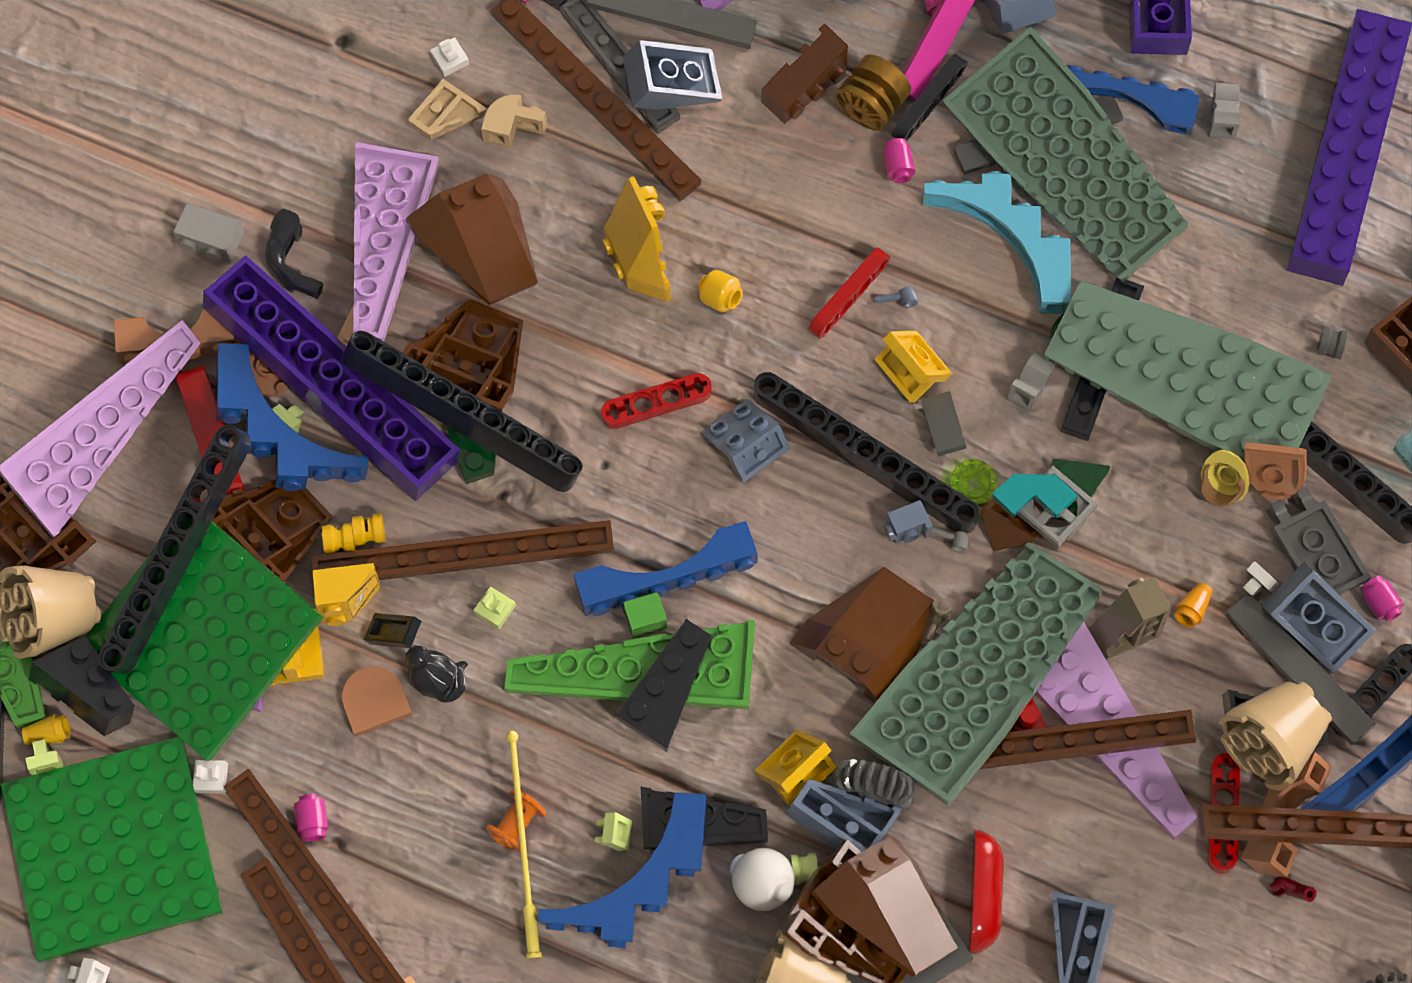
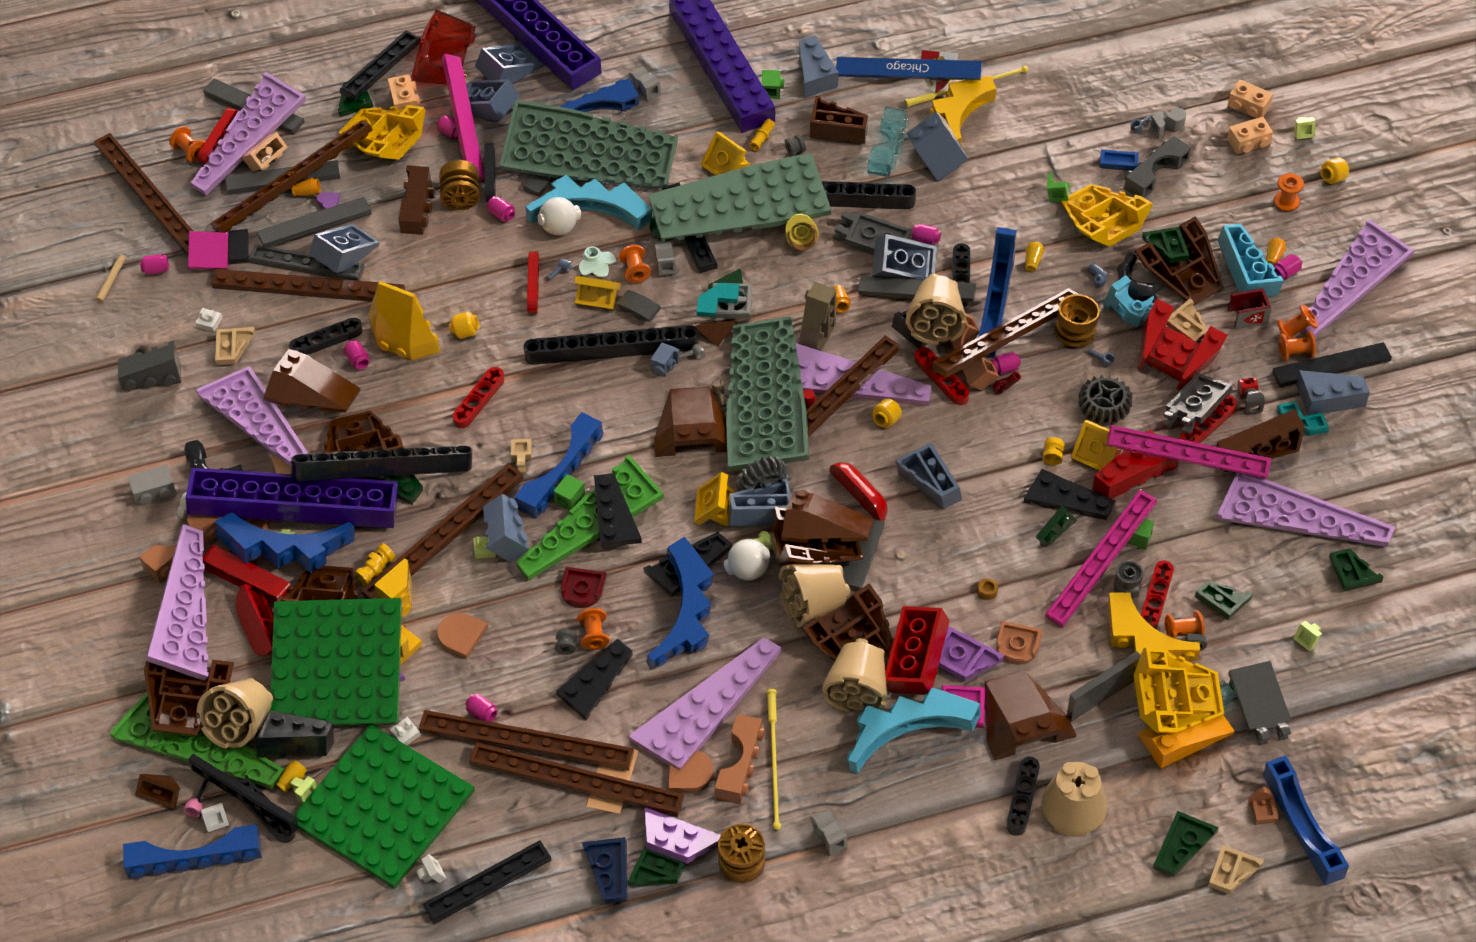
camera: 40 degrees left, 15 degrees down
(162, 558) = (291, 634): black beam -> none
(170, 490) = (255, 619): none -> red brick
(328, 78) = (150, 369): none -> dark grey wedge
(392, 630) = (441, 591): black tile -> none
(435, 674) = (482, 597): black hair -> none
(456, 885) = (590, 683): none -> black wing
(473, 810) = (565, 642): none -> dark grey wheel
(506, 116) = (272, 322): tan brick -> none
(528, 606) = (505, 528): none -> sand blue wedge
(529, 909) = (639, 662): light yellow piece -> none
(554, 187) = (324, 334): none -> black beam
(557, 751) = (582, 586): none -> dark red tile
(567, 235) = (356, 355): none -> dark pink brick
(615, 831) = (651, 597): yellowish green tile -> none
(638, 514) = (521, 451): none -> tan plate
(747, 439) = (544, 376): sand blue bracket -> none
(947, 326) = (596, 262): none -> light aqua plate
(952, 226) = (558, 216): none -> white brick
(967, 471) = (683, 315): clear neon green gear -> none
(982, 372) = (632, 257): none -> orange hose
(1106, 812) = (886, 413): none -> yellow head
(1224, 296) = (723, 155): none -> yellow bracket
(1260, 579) = (860, 264): white tile -> none
(1275, 469) = (824, 208): nougat tile -> none
(1306, 294) = (761, 135): none -> yellow axle
(1316, 862) = (1006, 362): none -> dark pink brick
(1381, 230) = (772, 83): none -> bright green brick

